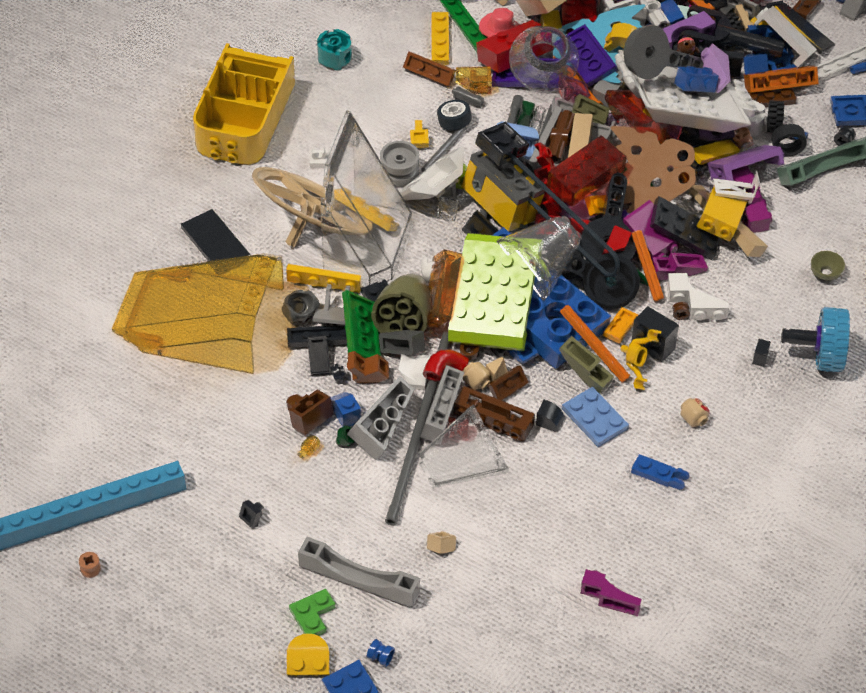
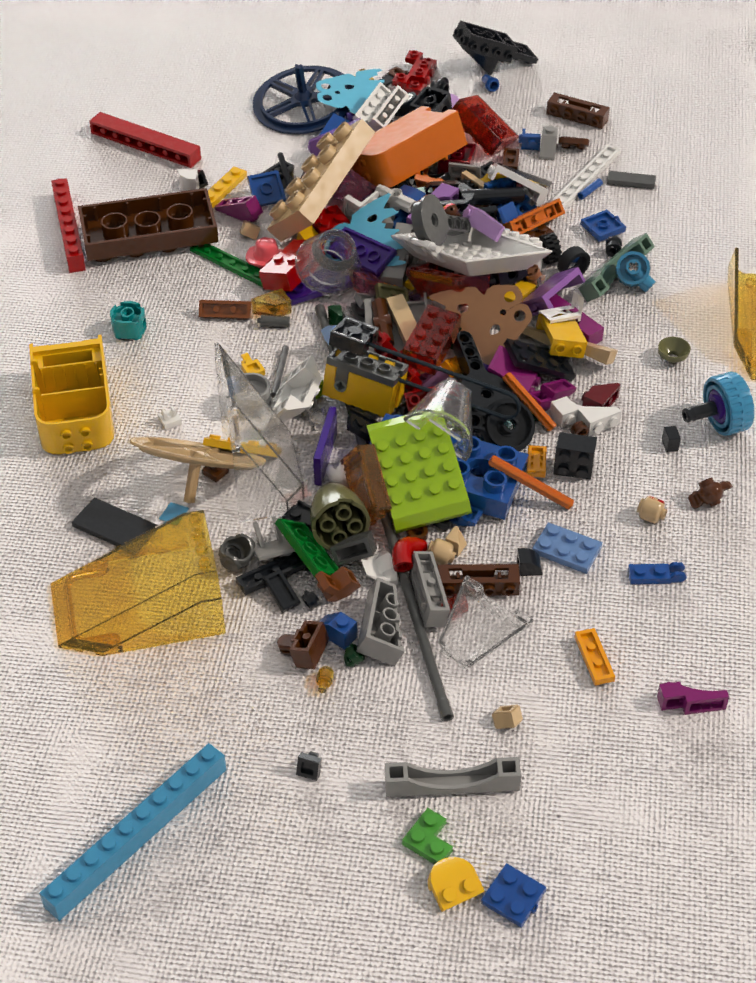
camera: 25 degrees left, 5 degrees down
(92, 569) = (178, 891): nougat wheel -> none
(273, 247) = (172, 510): none -> dark azure sticker
(322, 277) = (242, 519): yellow plate -> none
(380, 652) = (521, 847): blue wheel -> none
(434, 236) = (325, 446): none -> dark purple tile
(440, 37) = (216, 281): yellow plate -> none
(454, 114) = (273, 338): black wheel -> none
(508, 383) = (473, 547): reddish brown plate -> none
(550, 522) = (594, 656): none -> light orange plate
(586, 365) = (534, 504): olive slope -> none
(618, 36) = (390, 221): yellow brick -> none
(618, 239) = (496, 381): red tile -> none
(637, 355) = (572, 479): yellow piece -> none
(696, 79) = (475, 235): blue brick -> none
(724, 286) = (601, 395): none -> dark red slope
(759, 418) = (708, 493): none -> reddish brown piece
(850, 172) = (638, 277): none -> dark azure piece

